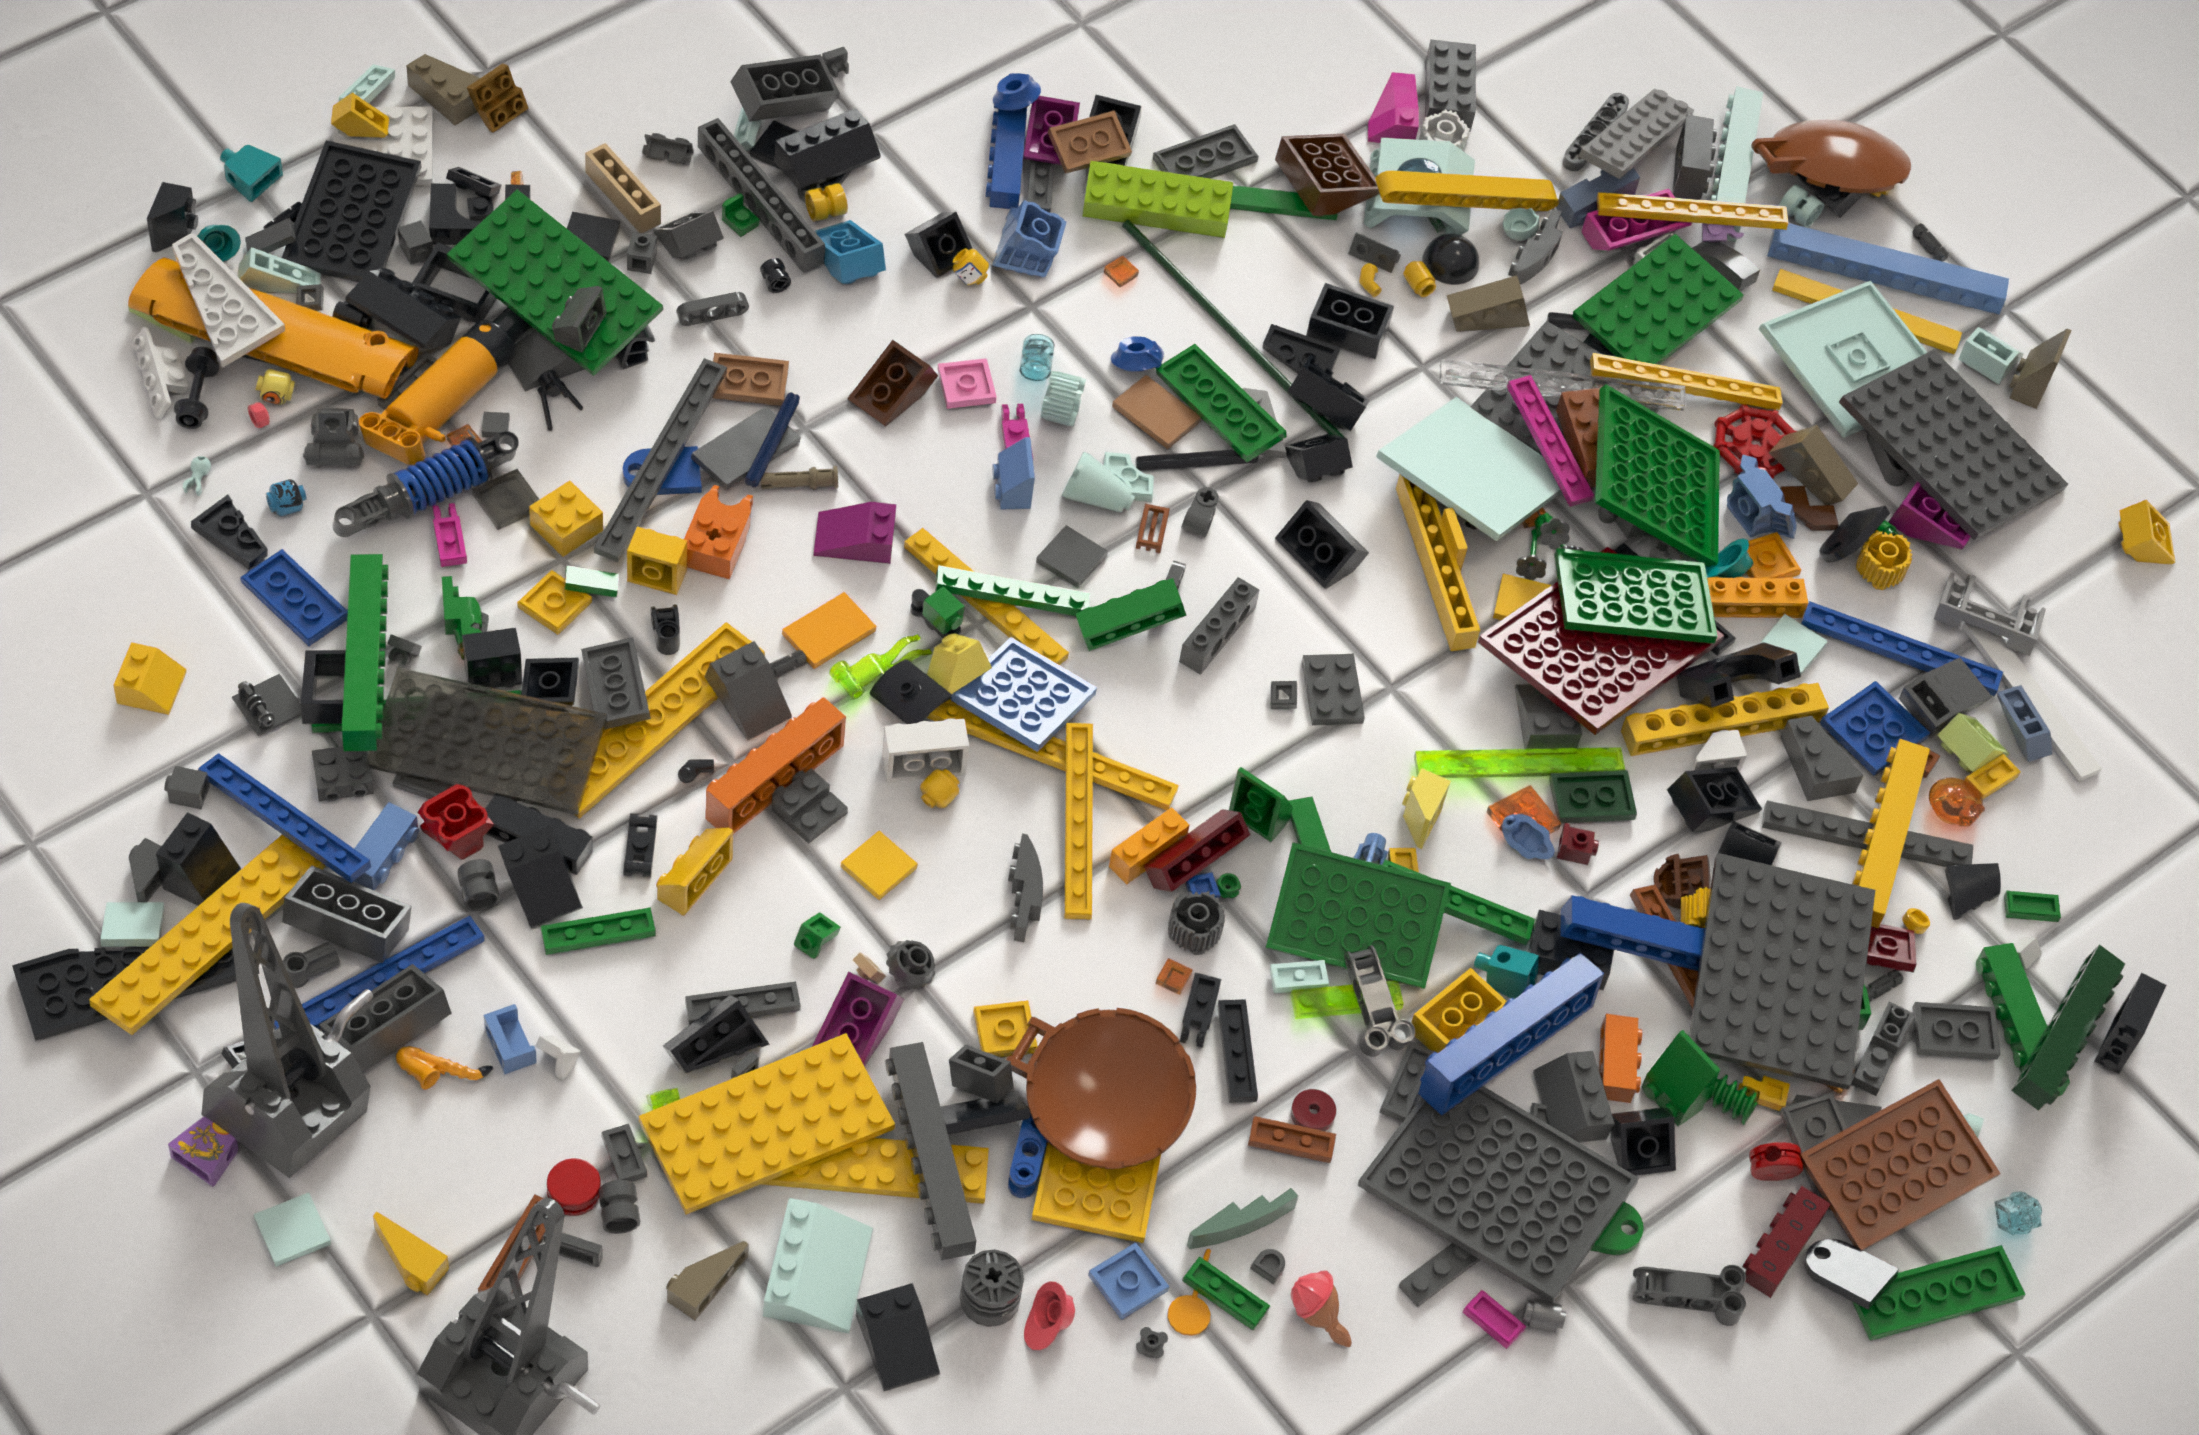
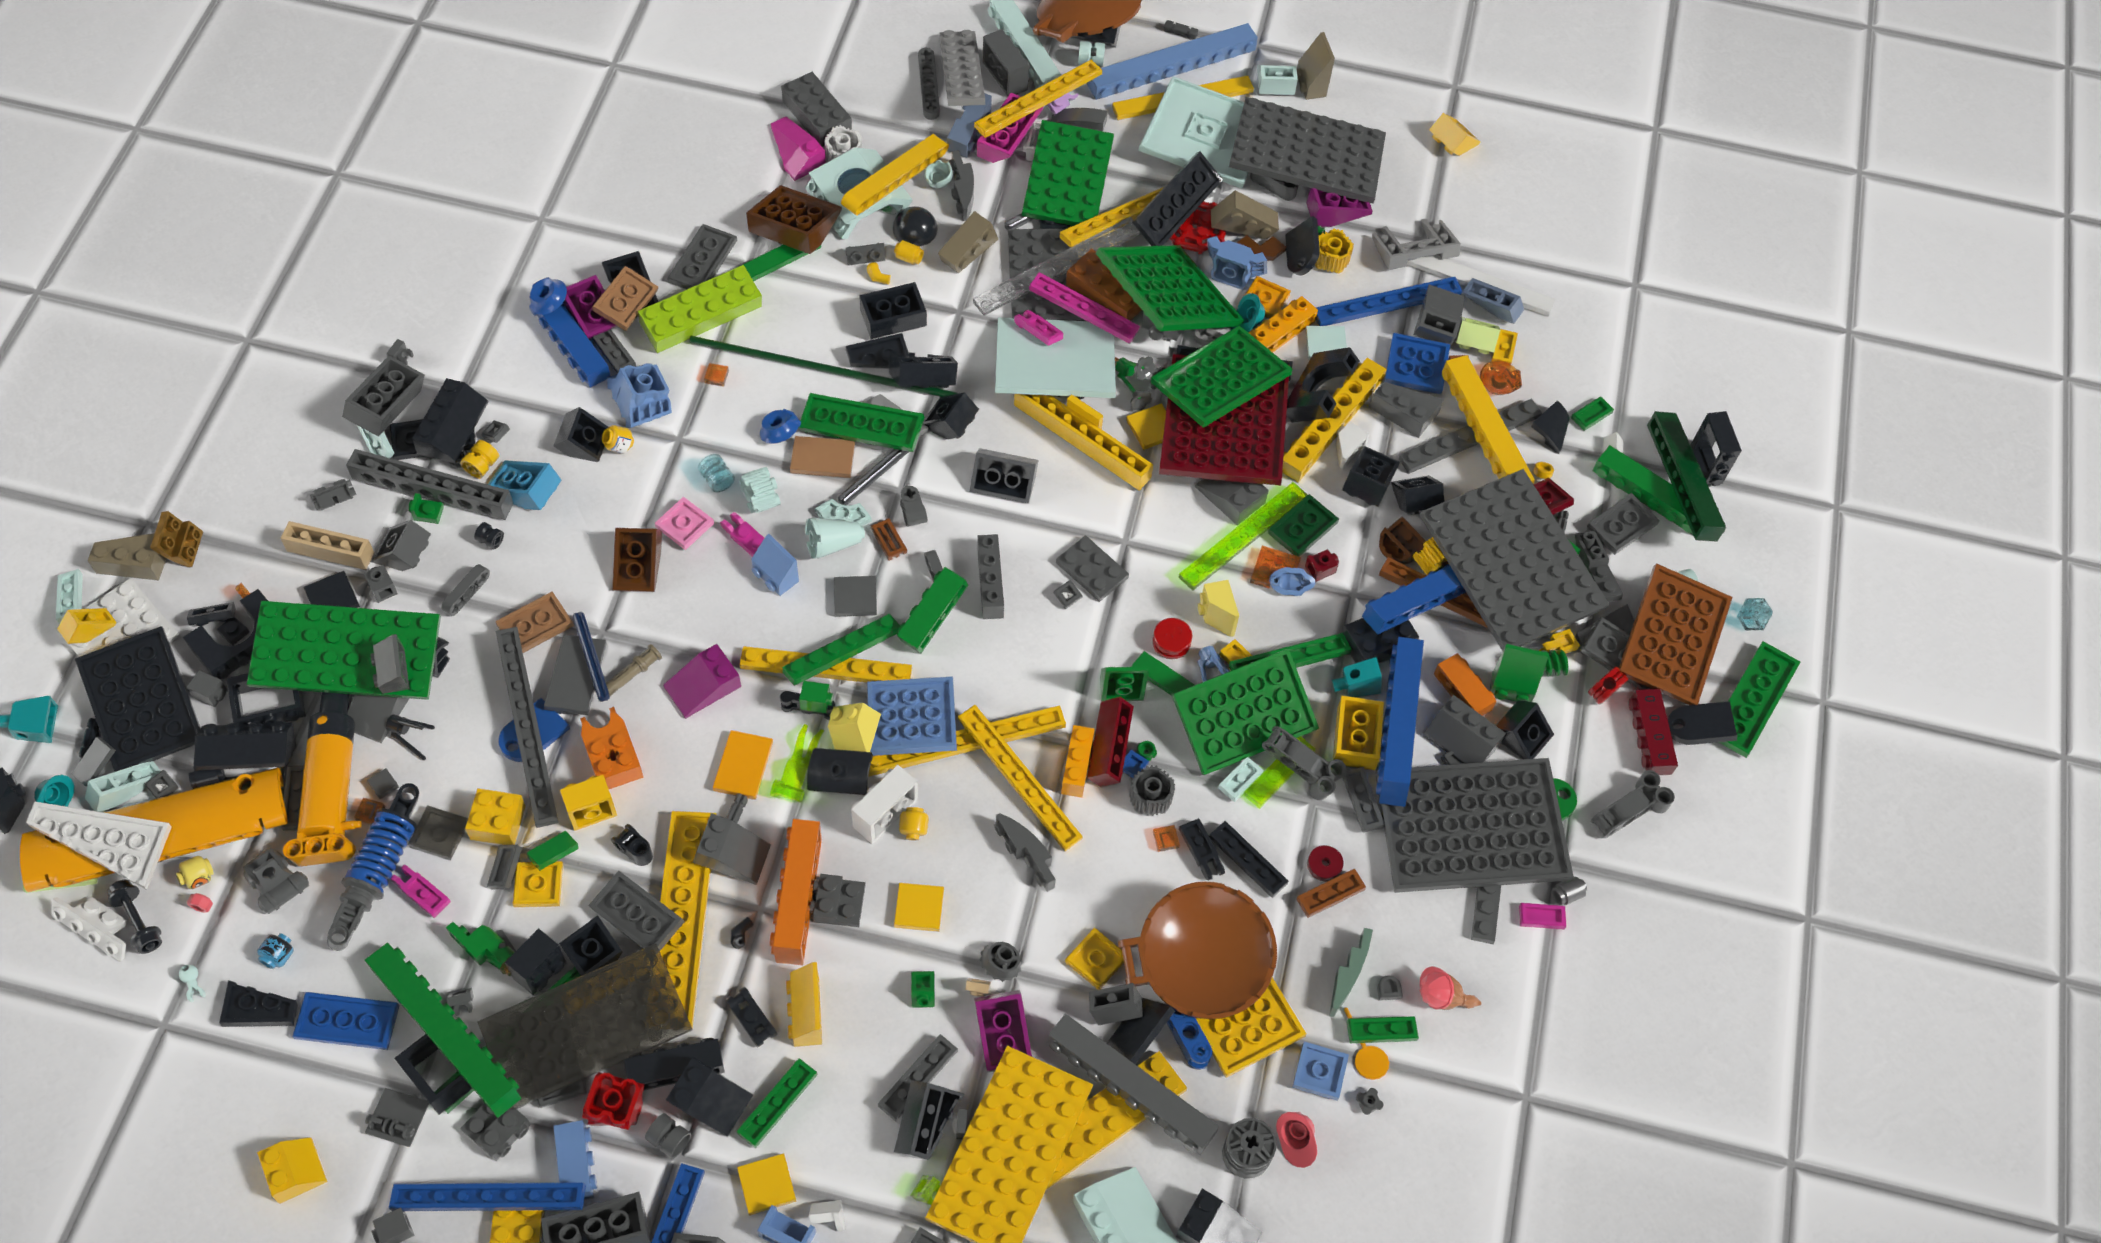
camera: 35 degrees left, 5 degrees up
(530, 989) = (766, 1184): none -> yellow tile
(537, 566) = (504, 867): none -> dark grey tile
(863, 188) = (495, 431): none -> dark grey tile
(1352, 805) = (1172, 638): none -> red head
(1485, 430) = (1039, 327): none -> dark pink hinge
(1752, 401) = (1177, 200): none -> black plate

